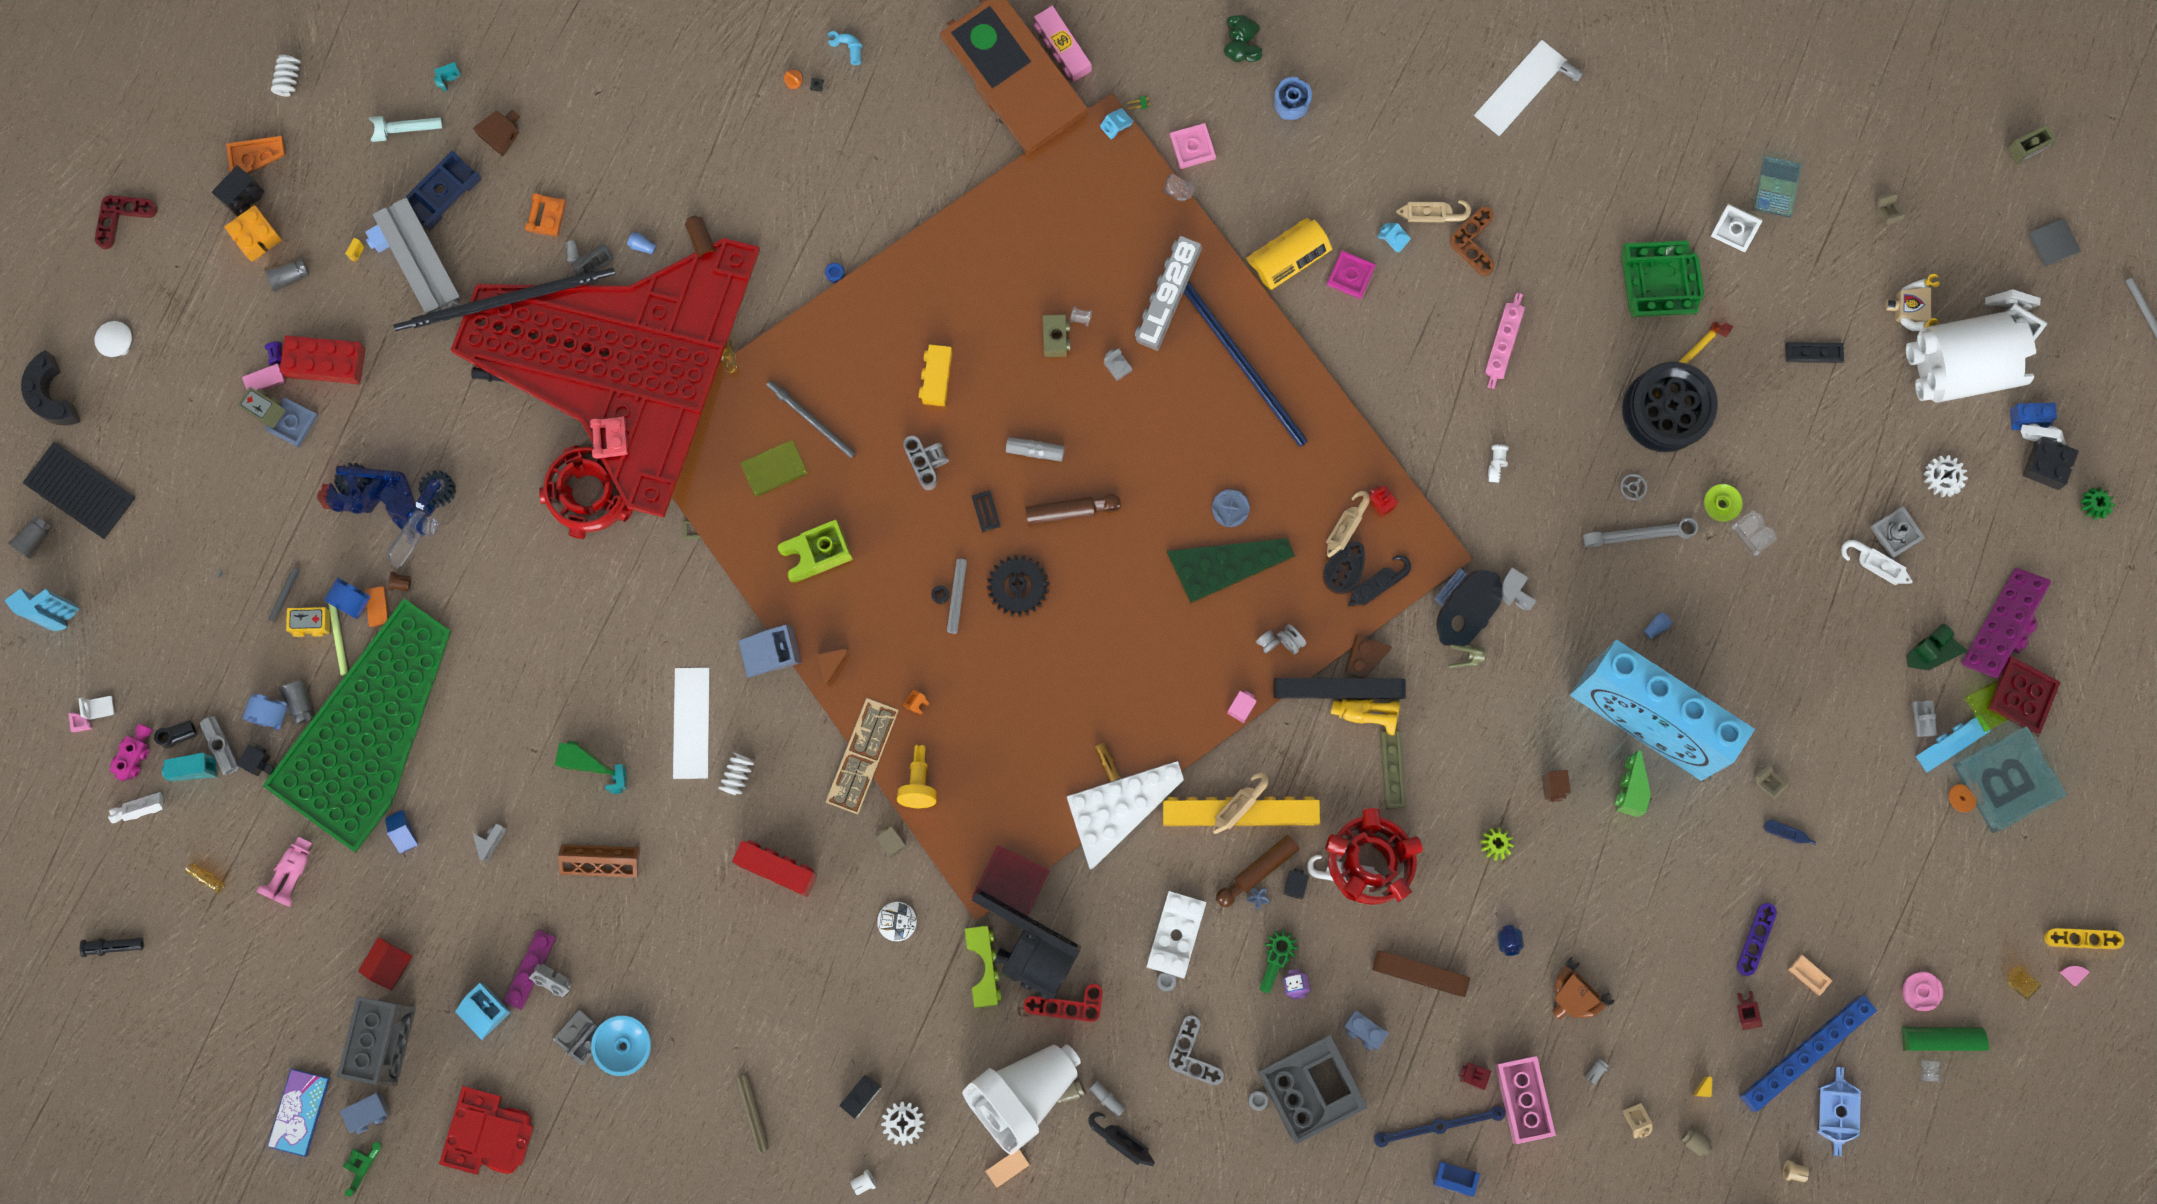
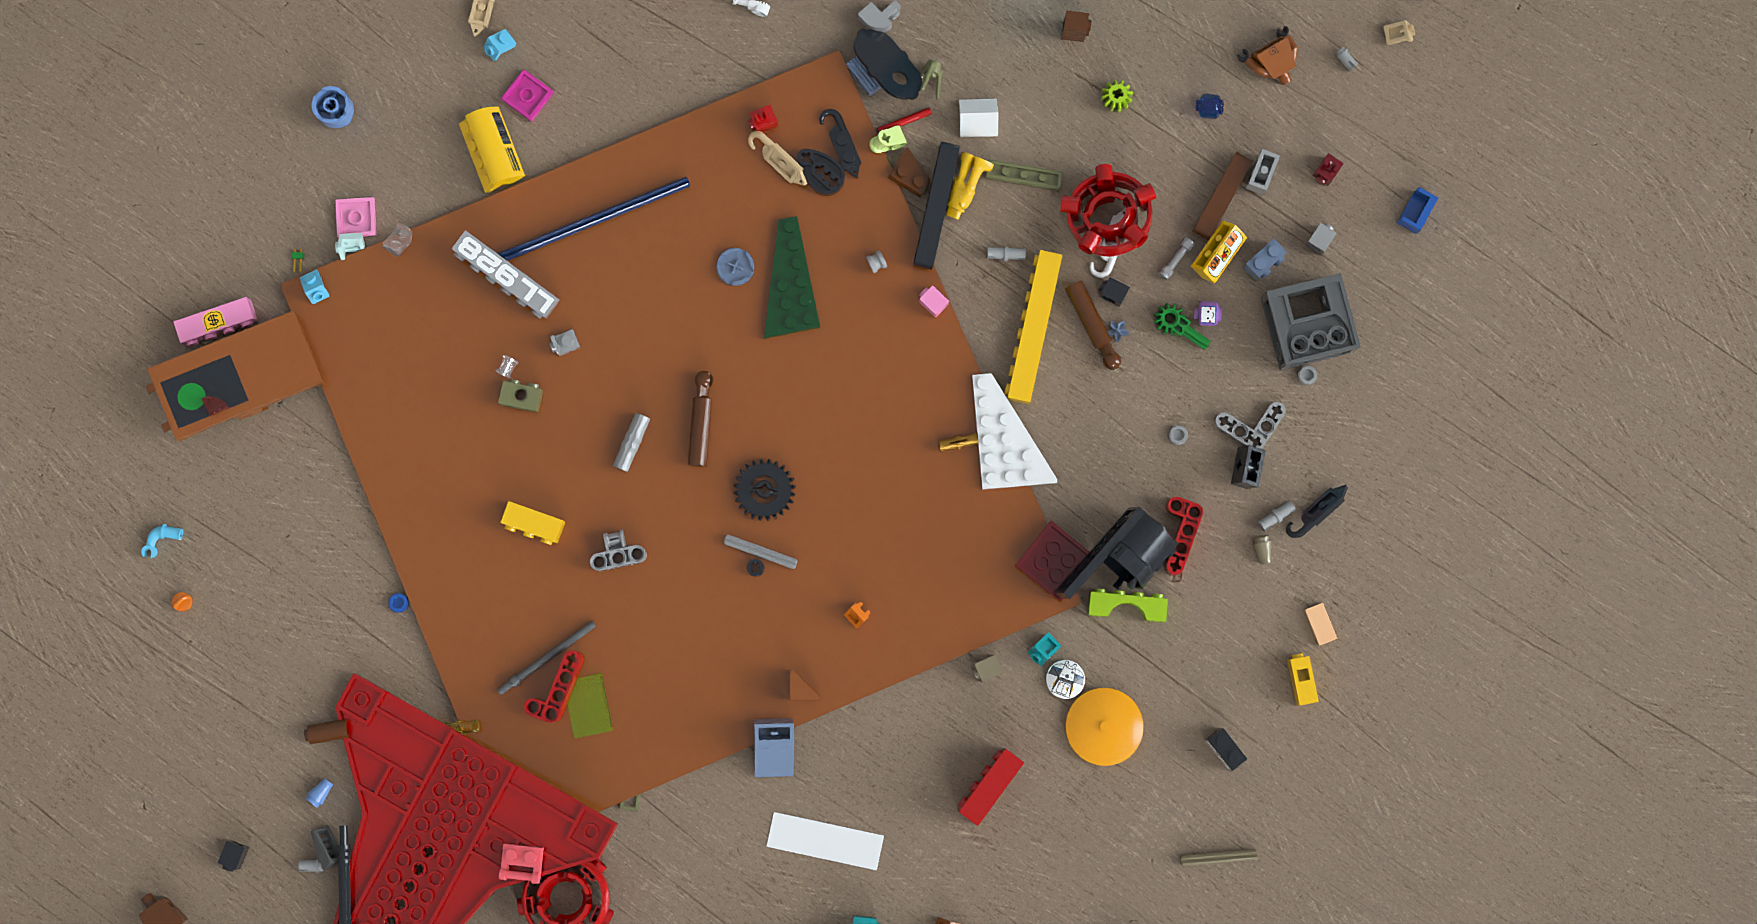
camera: 80 degrees left, 5 degrees up
(551, 216) = (266, 880): orange plate -> none
(568, 180) = (233, 855): none -> black brick
(736, 775) = (888, 805): white piece -> none
(787, 435) = (558, 684): none -> red beam
(813, 551) = (686, 684): lime brick -> none
(816, 84) = (194, 579): pearl dark grey piece -> none
(858, 970) = (1104, 726): none -> light orange dish
(862, 756) = (897, 678): sticker -> none
(863, 1182) = (1306, 763): white bush -> none
(911, 1123) = (1258, 723): white gear -> none
(917, 793) = (949, 632): yellow piece -> none
(921, 893) = (1044, 649): none -> teal bracket
(947, 1160) = (1302, 679): none -> yellow brick
(979, 58) = (214, 405): none -> clear red tile
(990, 526) = (675, 505): black tile -> none
(1021, 1094) = (1260, 593): white cone -> none
(1148, 1058) = (1248, 467): none -> black brick
(1165, 145) = (349, 243): none -> light aqua bracket
(1179, 914) = (1154, 425): white piece -> none
(1239, 804) = (1029, 325): tan plate -> none
(1241, 33) = (251, 140): dark green animal -> none
(1291, 639) = (879, 238): light grey wheel -> none
(1308, 768) = (1006, 253): none -> light grey pin
(1361, 948) = (1185, 246): none -> light grey bar
(1362, 981) = (1219, 251): none -> yellow brick
(1393, 626) = (888, 140): none -> yellowish green piece
(1402, 1084) = (1321, 238): none -> light grey brick
(1417, 638) = (906, 120): none -> red bar
(1439, 711) = (978, 118): none -> white slope
(1455, 1008) = (1262, 172): none -> light grey brick
(1496, 1113) = (1366, 269): dark blue piece -> none
(1525, 1100) = (1360, 129): bright pink brick -> none

